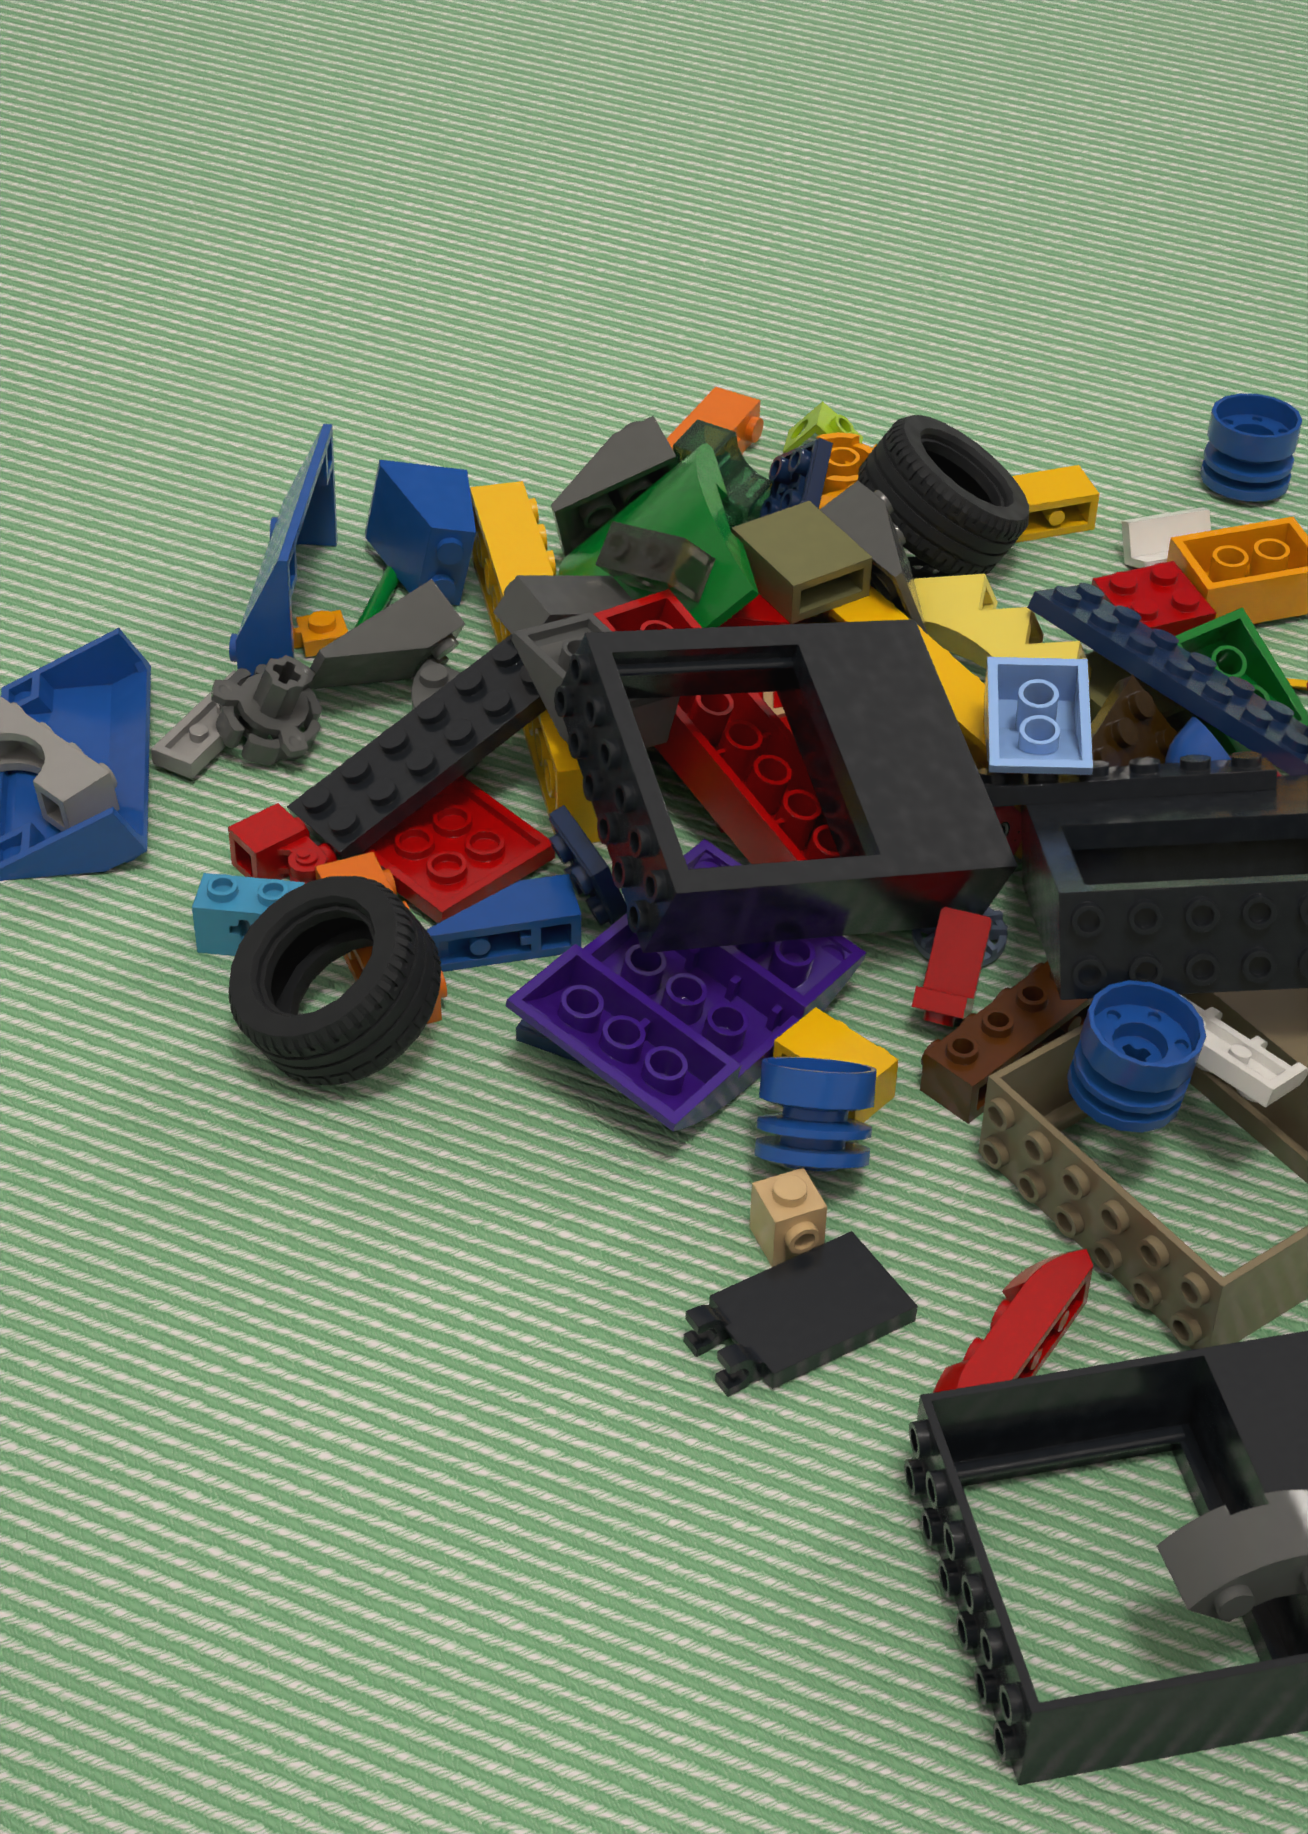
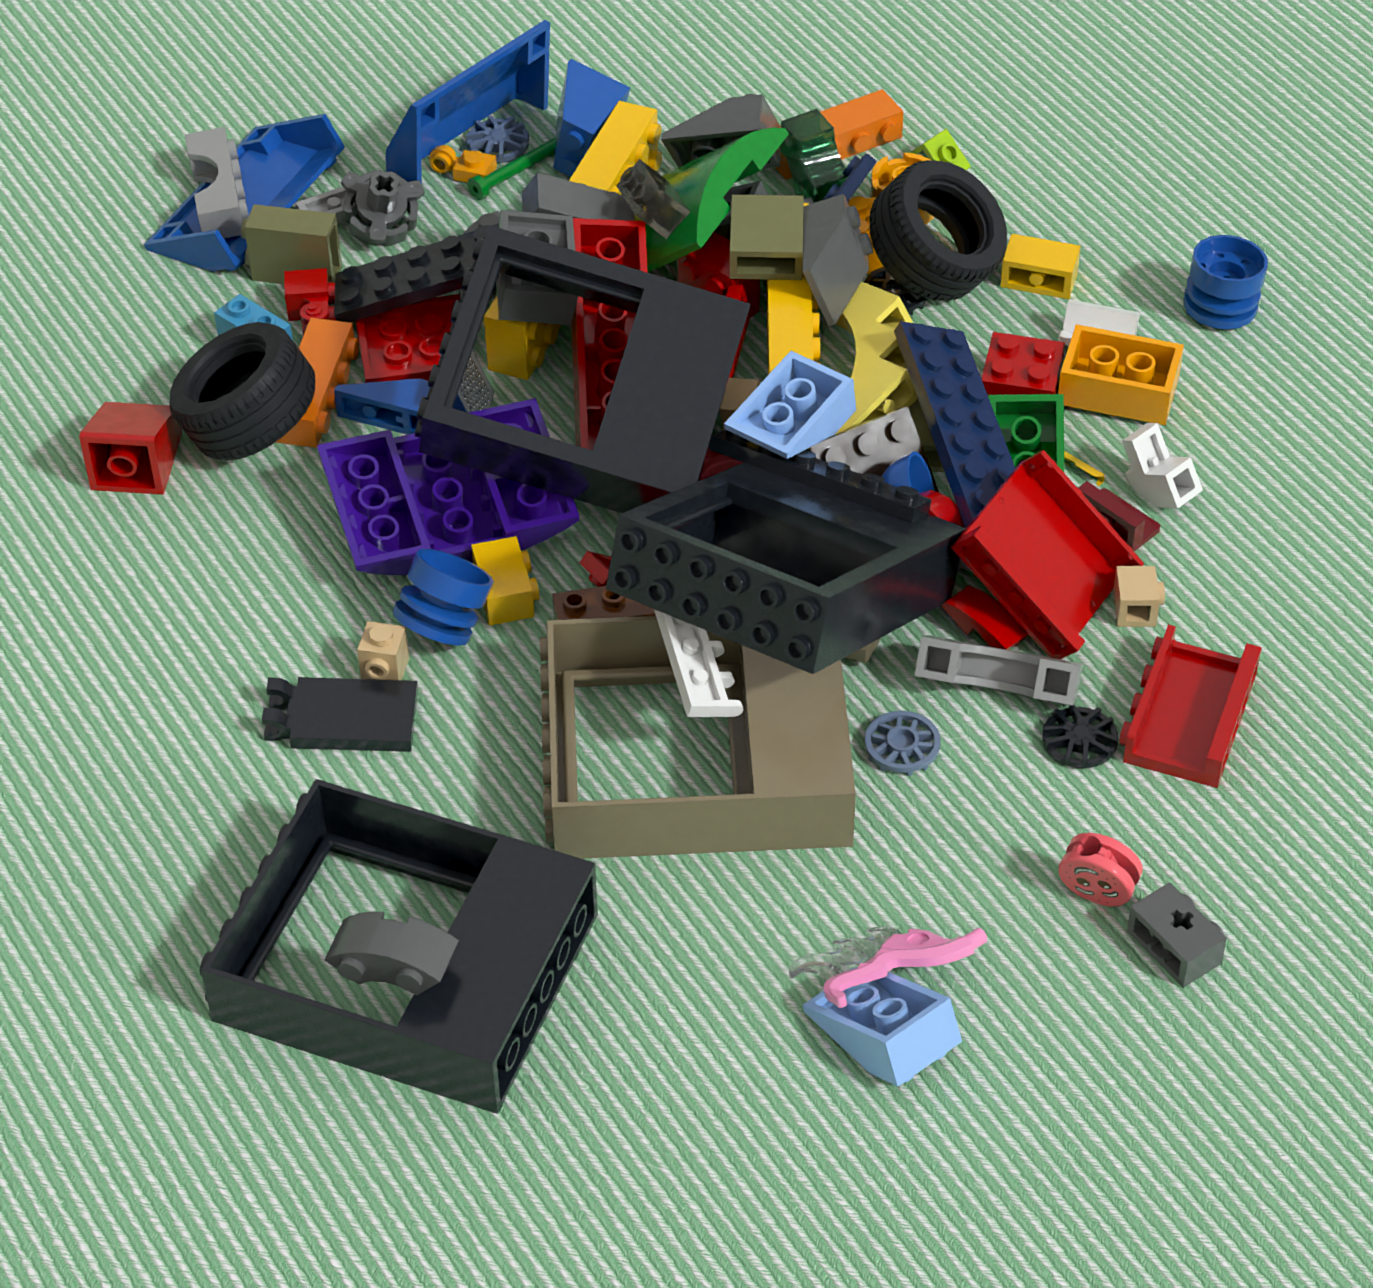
camera: 35 degrees right, 5 degrees up
(204, 791) = (290, 241): none -> olive brick
(227, 1115) = (130, 447): none -> red slope
(327, 592) = (501, 137): none -> sand blue wheel
(391, 642) = (480, 187): dark grey slope -> none
(1027, 1323) = (460, 783): red brick -> none
(1135, 1056) = (623, 645): blue wheel -> none

